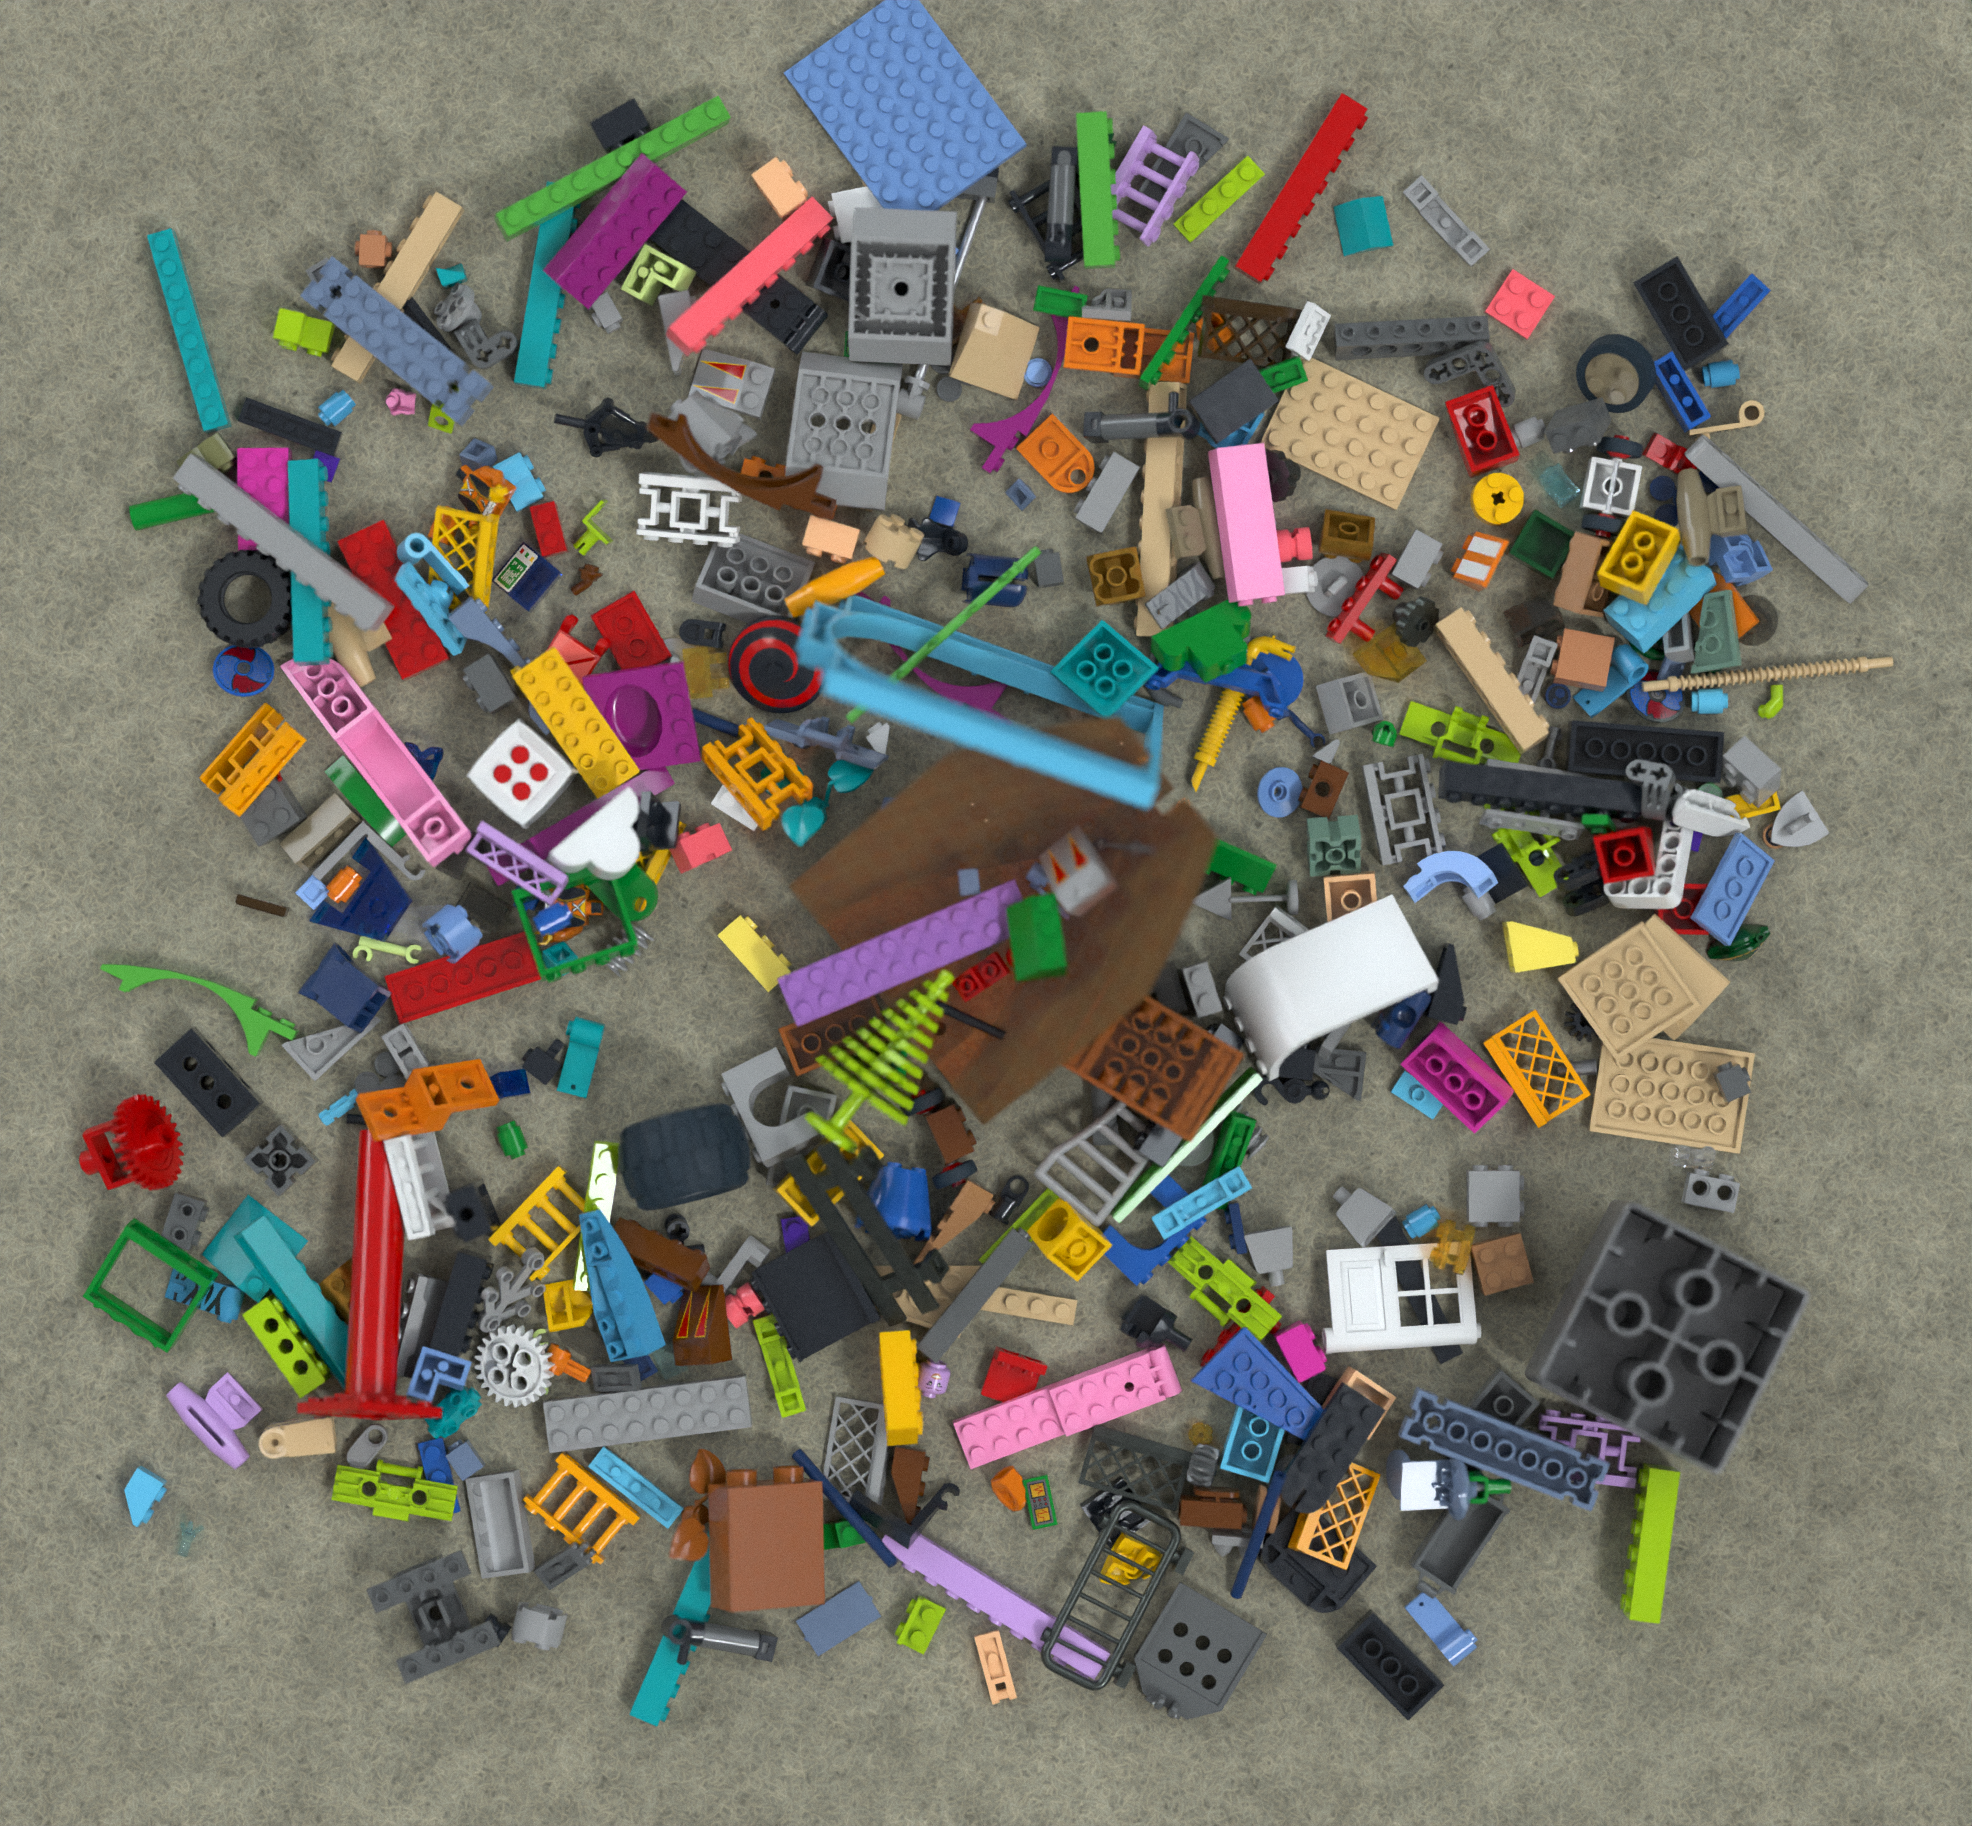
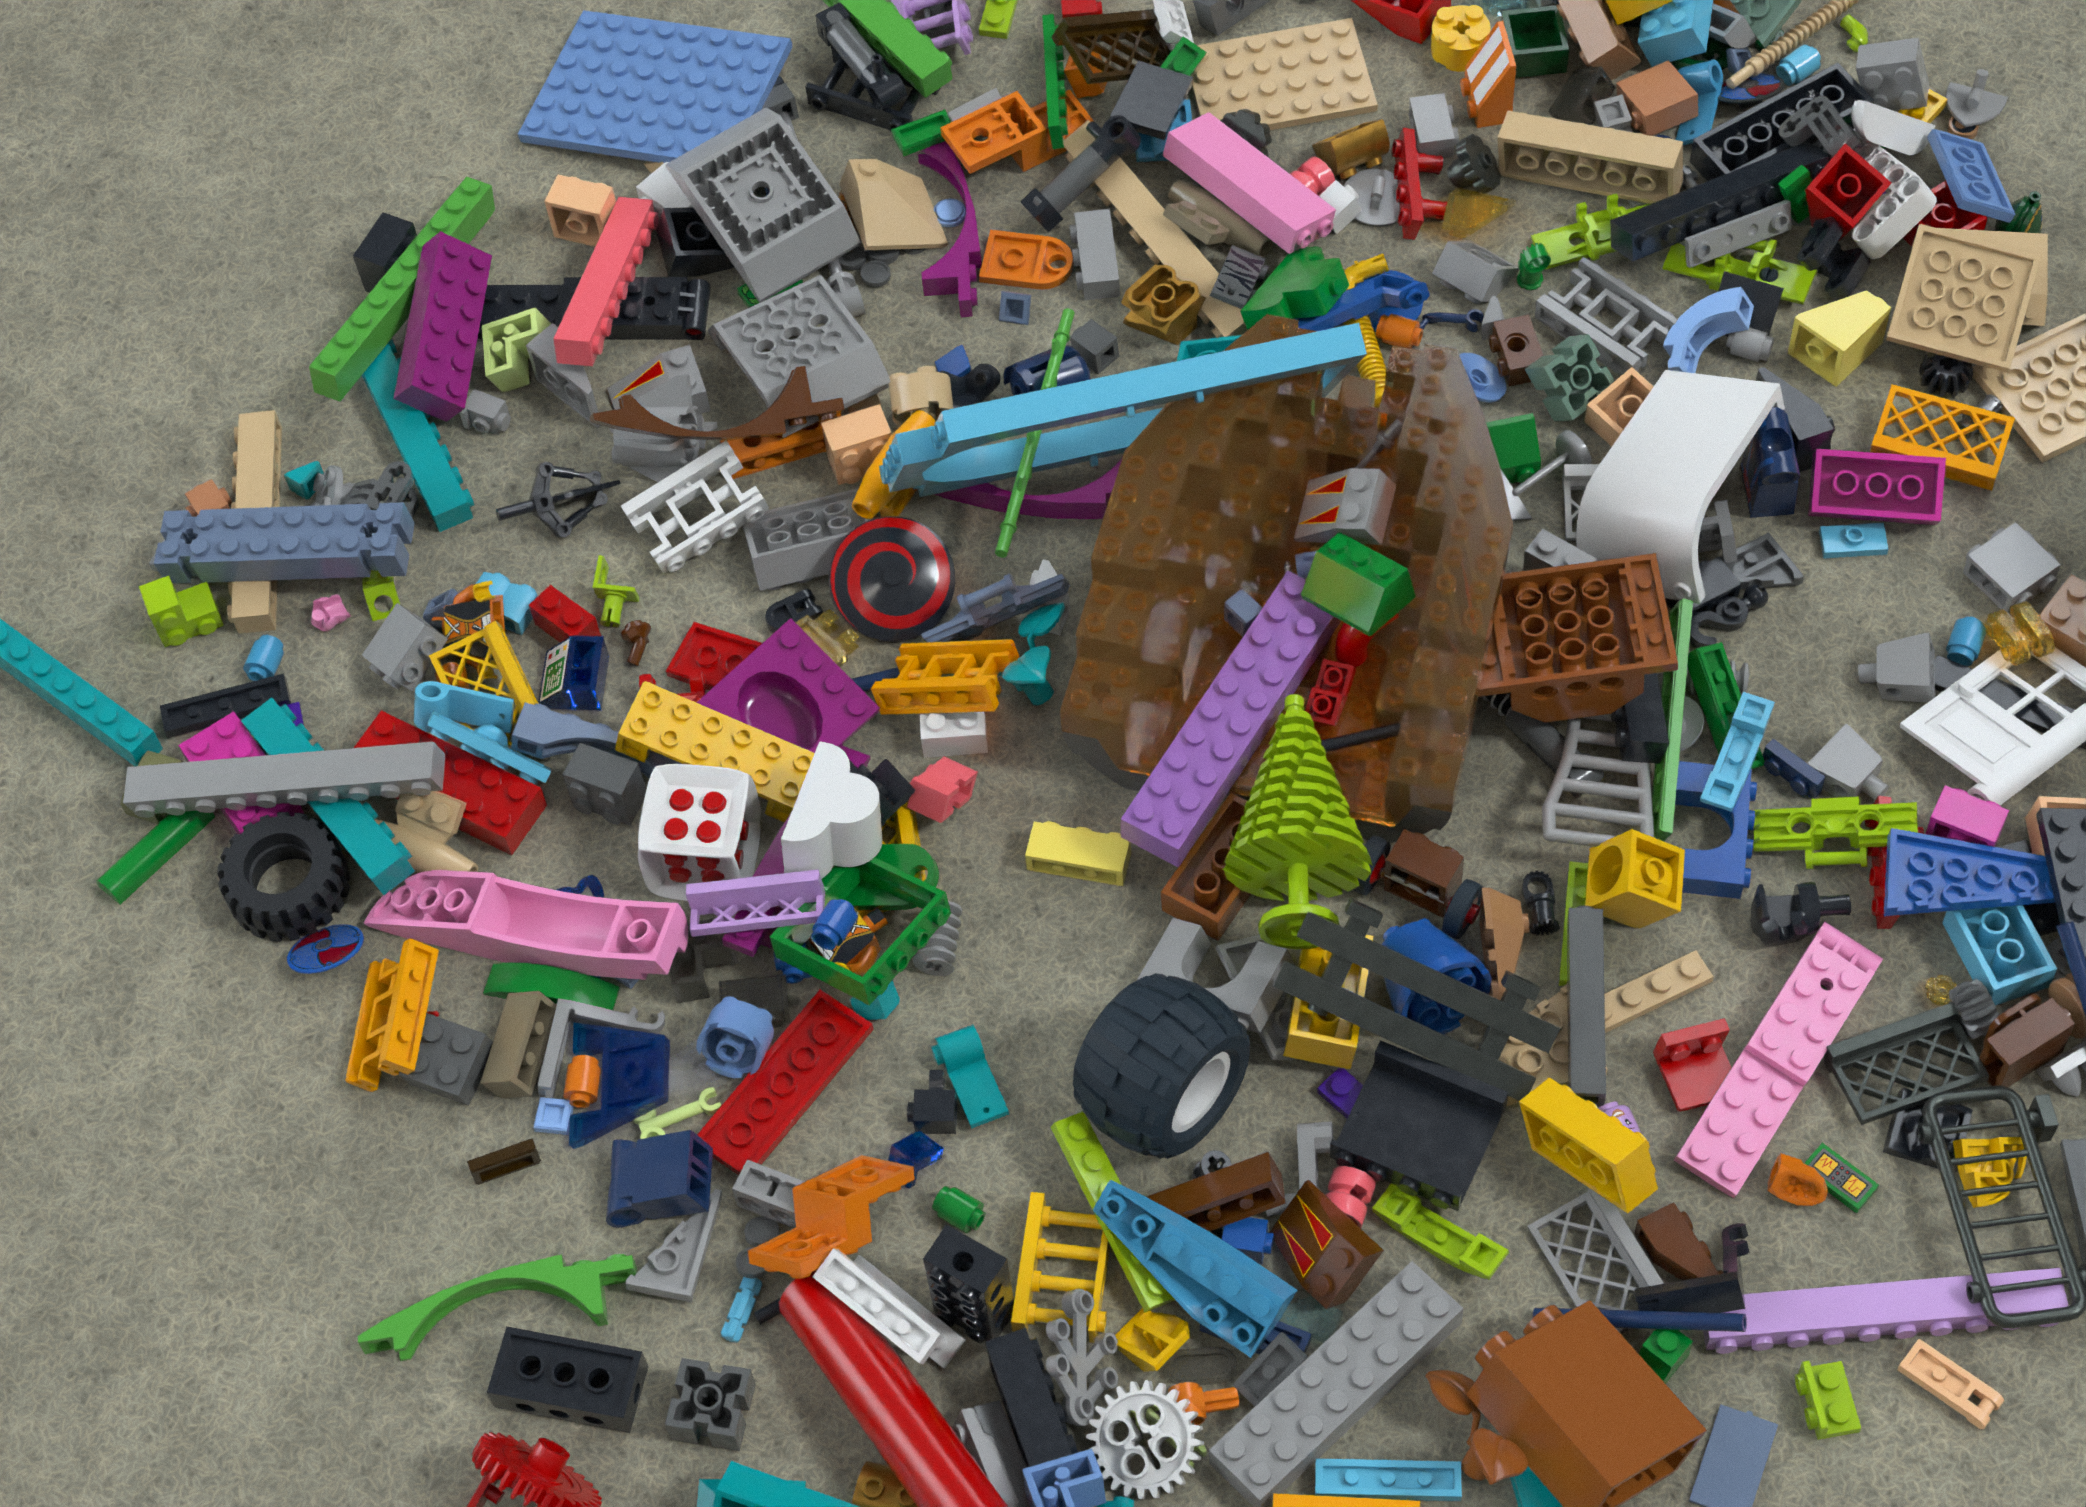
camera: 30 degrees left, 30 degrees down
(428, 479) = (403, 648): none -> light grey brick

